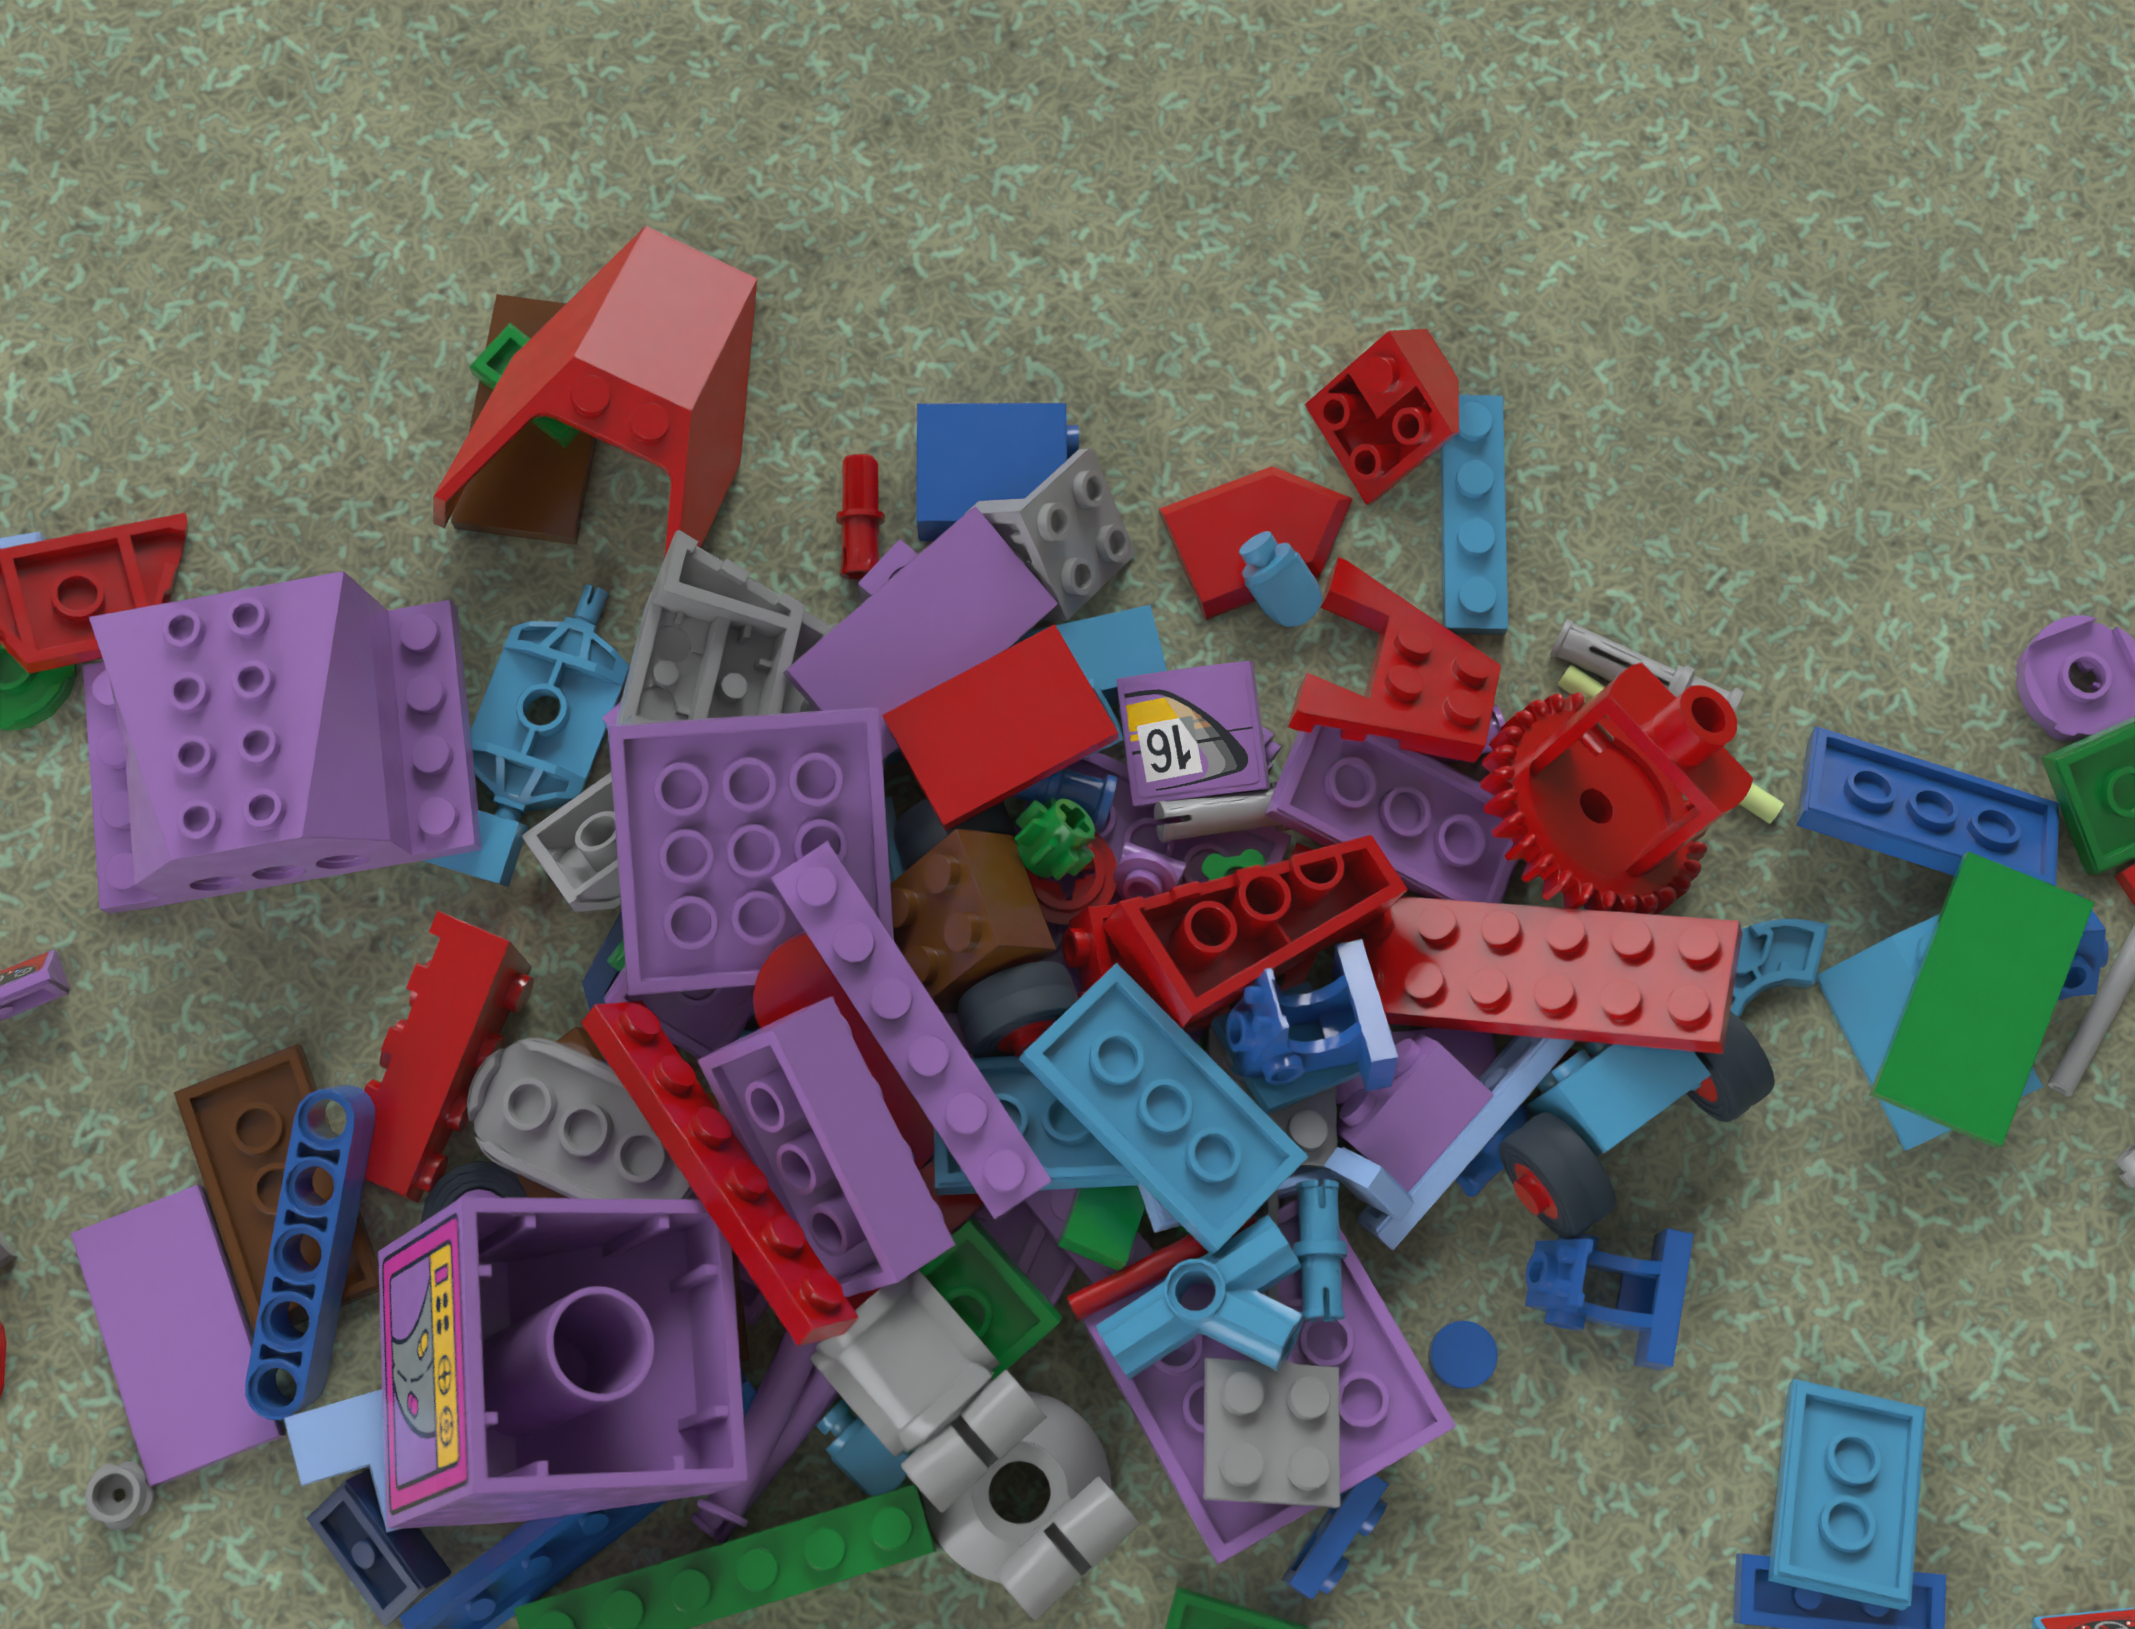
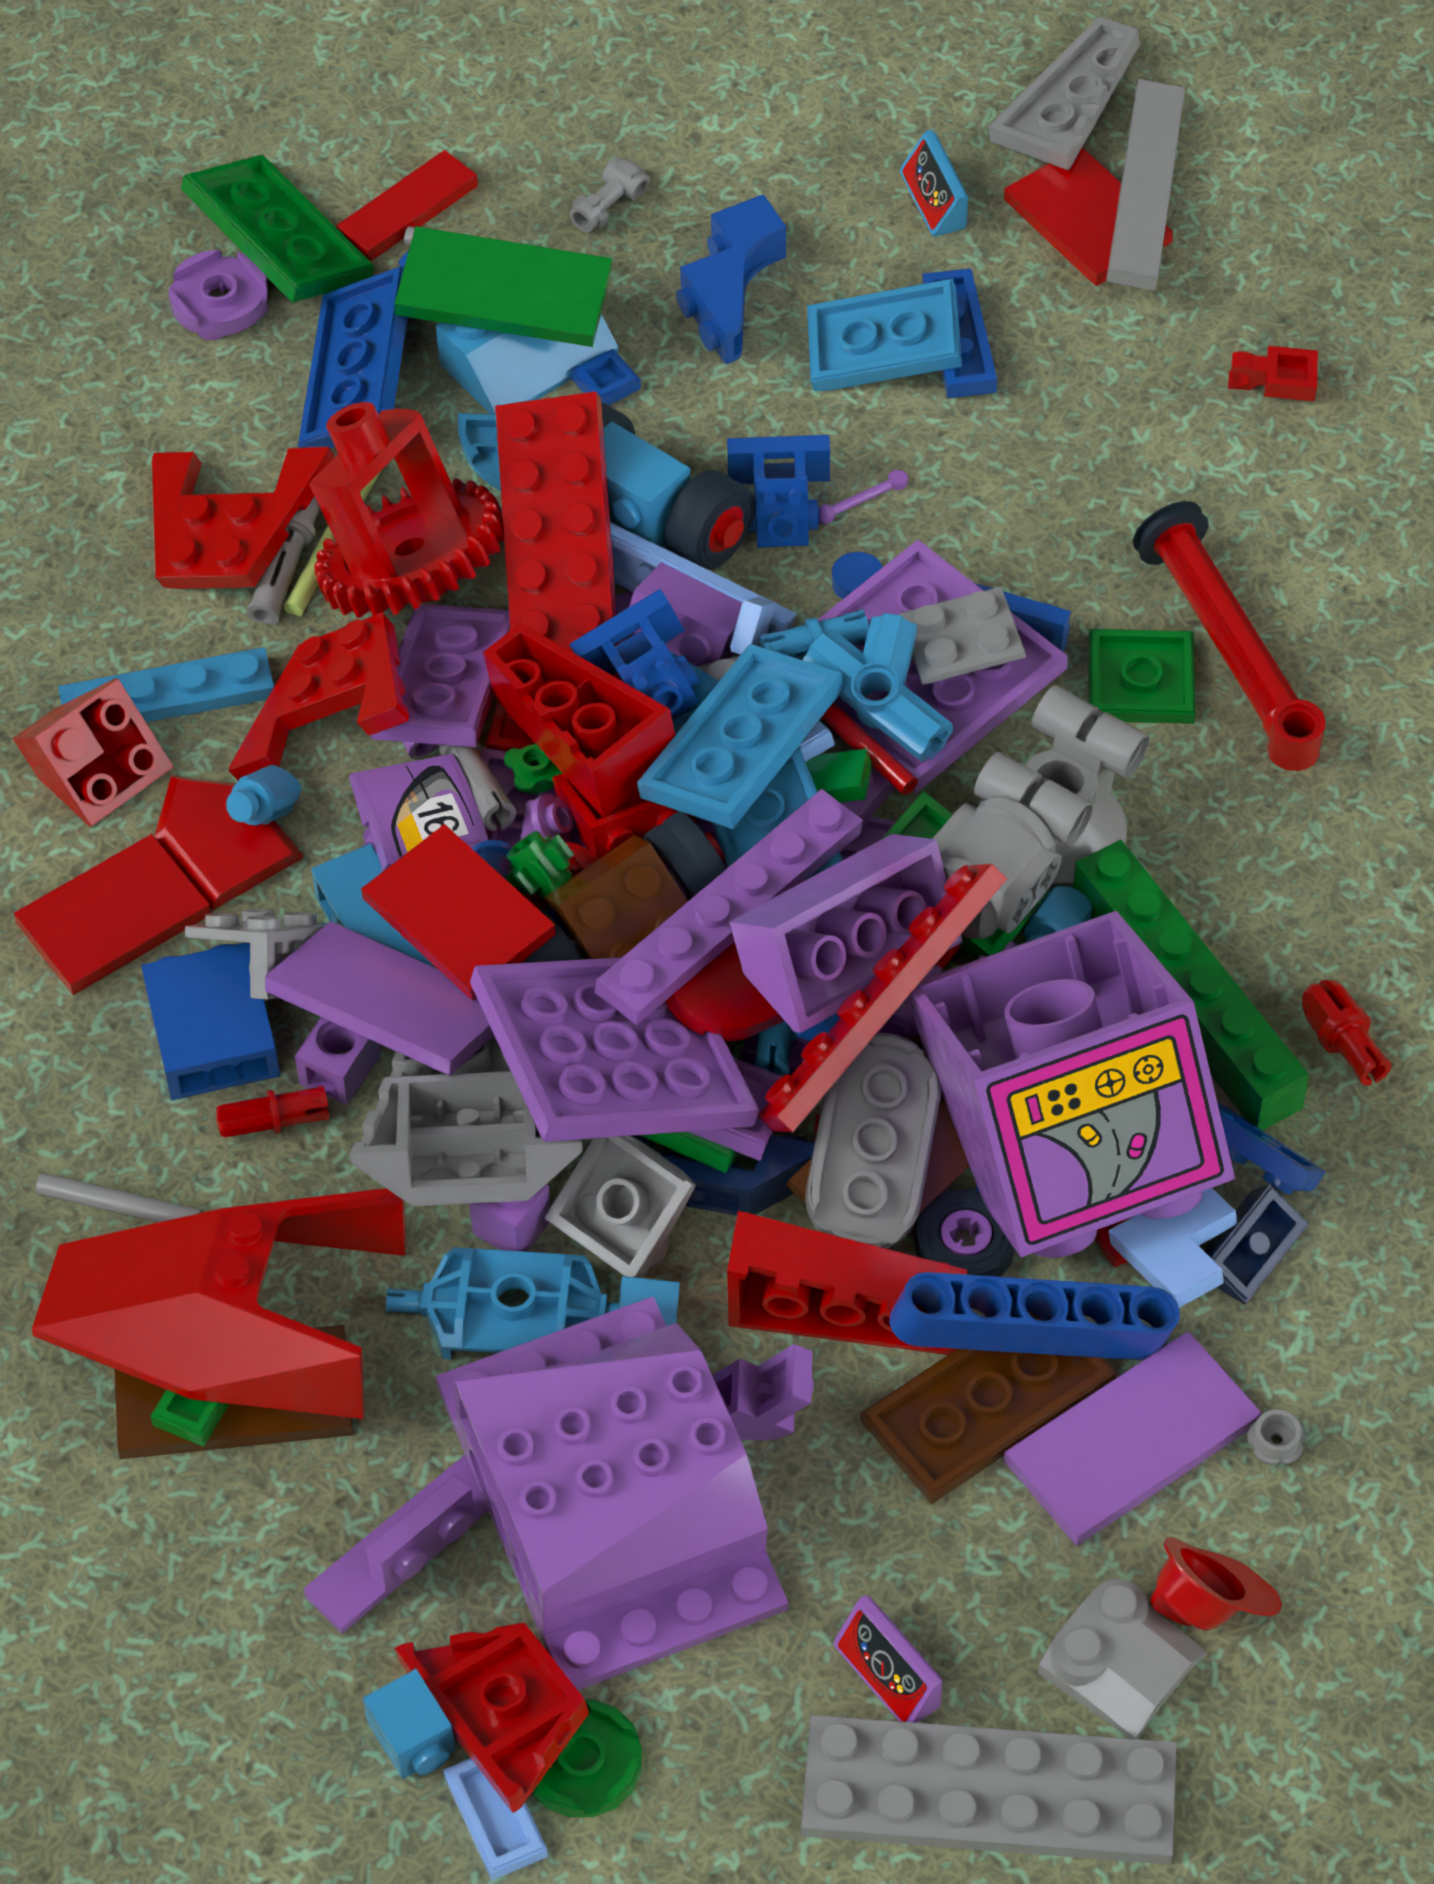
camera: 100 degrees left, 20 degrees down
(86, 499) = (410, 1725): none -> dark azure brick
(283, 517) = (398, 1547): none -> medium lavender bracket
(337, 933) = (767, 1395): none -> medium lavender brick
(801, 350) = (110, 1199): none -> light grey piece
(1175, 404) = (112, 914): none -> red tile
(1612, 1450) = (896, 480): none -> medium lavender hinge
(1682, 598) = (224, 536): none -> red wing
(1854, 1122) = (607, 376): none -> blue tile
(1973, 1295) = (714, 287): none -> blue arch

